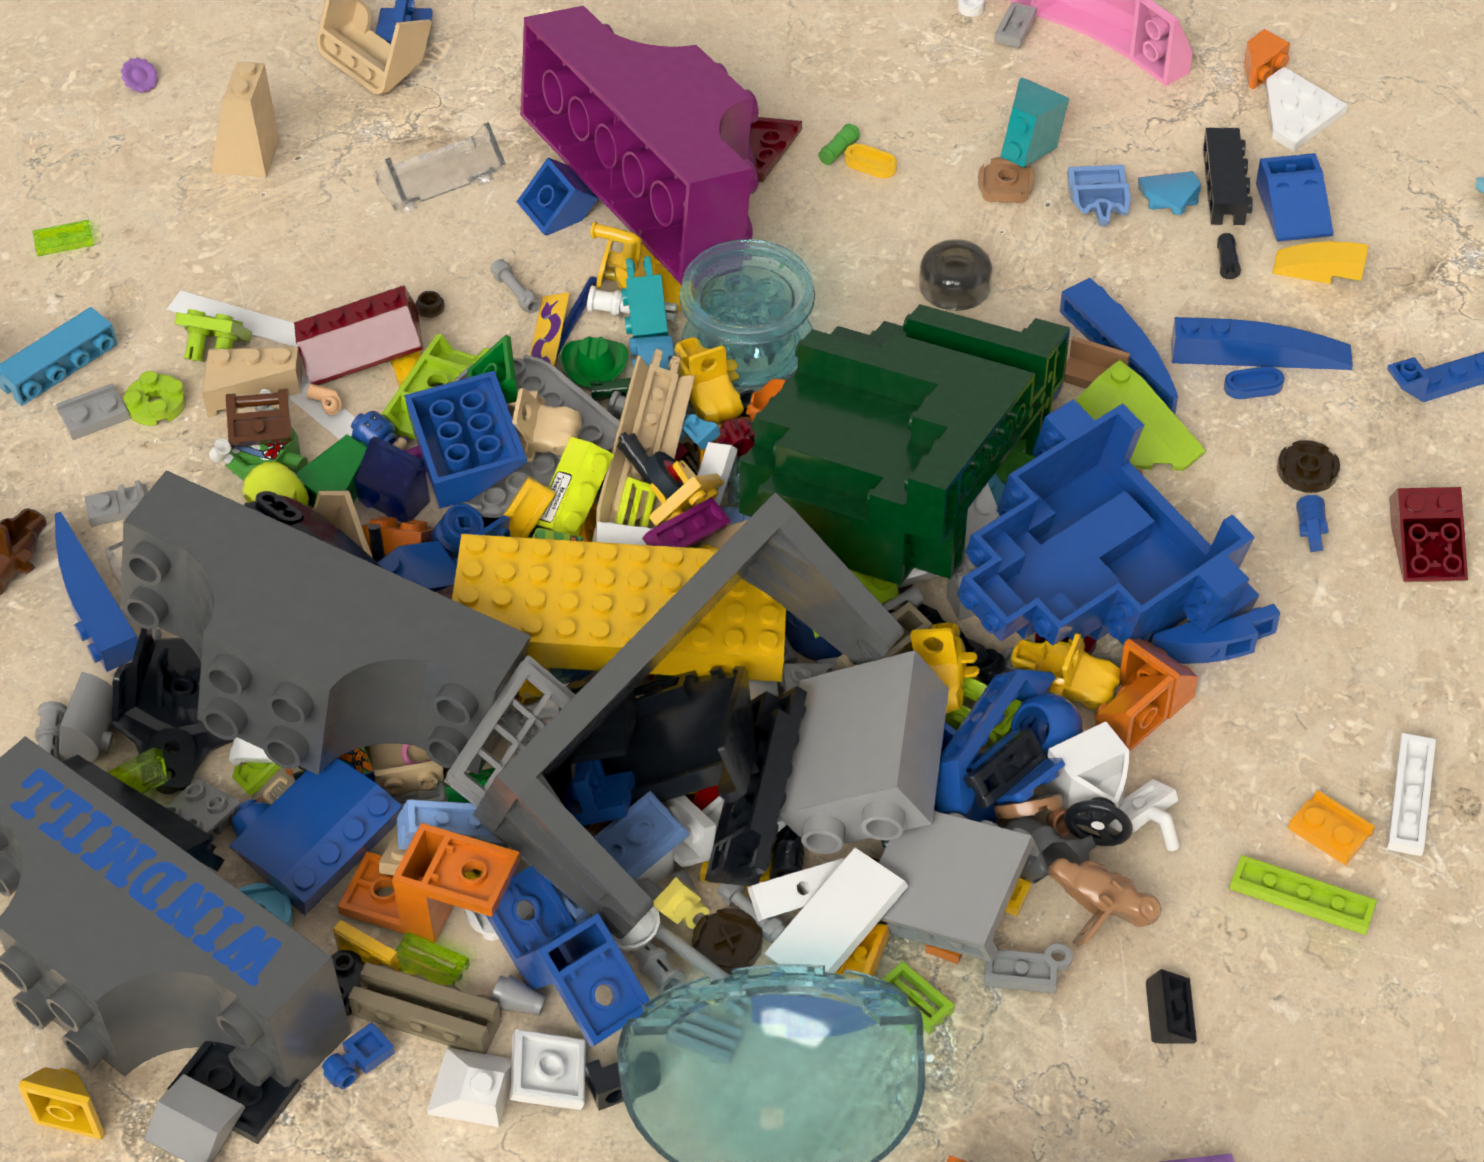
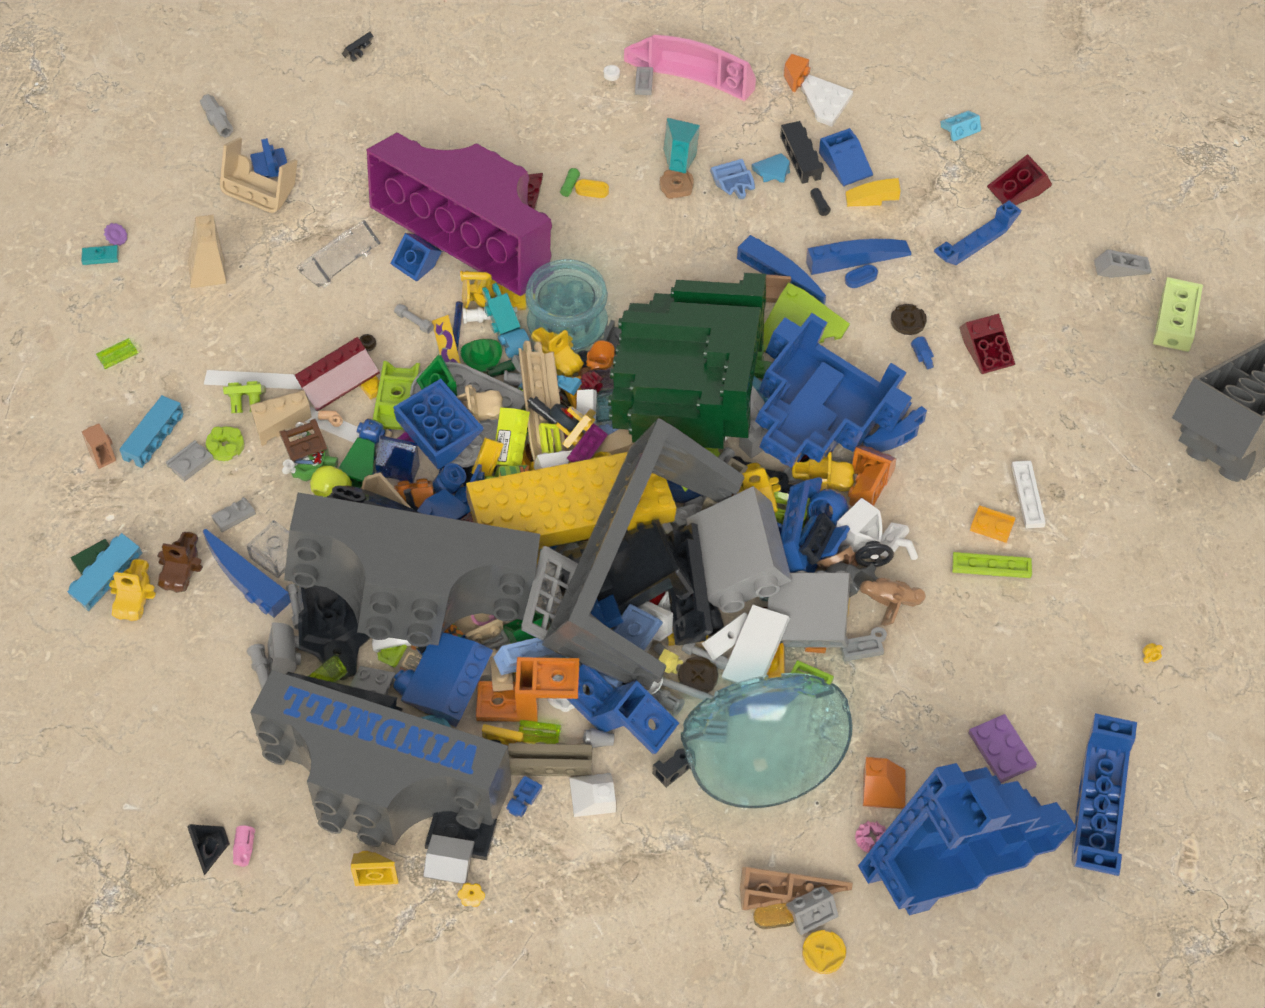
camera: 20 degrees left, 5 degrees up
(105, 99) = (100, 255): none -> teal plate
(548, 1069) = (631, 773): white plate -> none
(955, 275) = (674, 258): clear smoke piece -> none
(1170, 1008) = (945, 646): black slope -> none

